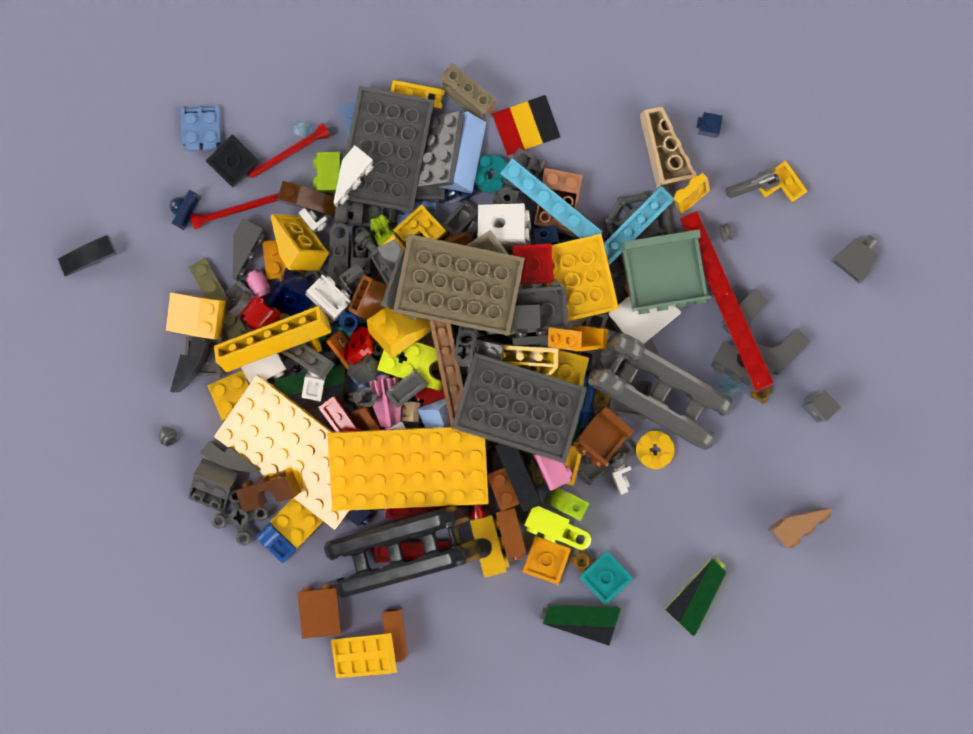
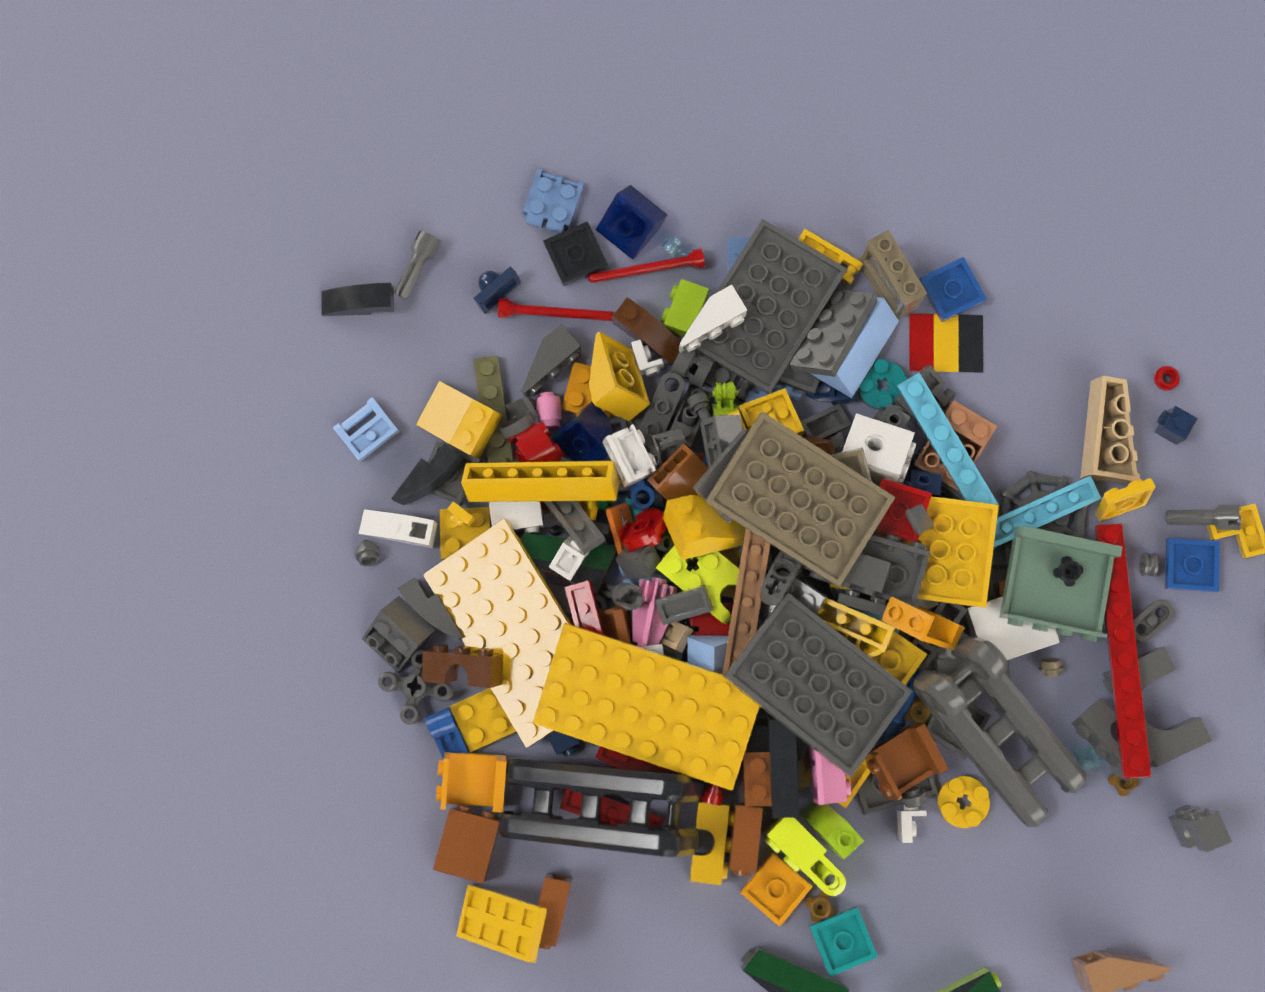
camera: 25 degrees right, 5 degrees down
(120, 199) = (423, 249): none -> dark grey piece
(136, 350) = (370, 435): none -> light blue plate
(183, 410) = (399, 528): none -> white slope
(224, 385) = (460, 516): none -> yellow plate
(264, 122) = (631, 221): none -> clear blue slope
(305, 566) = (472, 780): none -> light orange panel
(516, 85) = (952, 289): none -> blue plate
(548, 265) = (919, 519): none -> dark grey slope
(673, 261) = (1075, 571): none -> black plate
(682, 331) = (1051, 667): none -> dark tan plate
(693, 86) = (1173, 375): none -> red plate
(740, 272) = (1150, 622): none -> dark grey plate
(756, 221) = (1192, 565): none -> blue plate

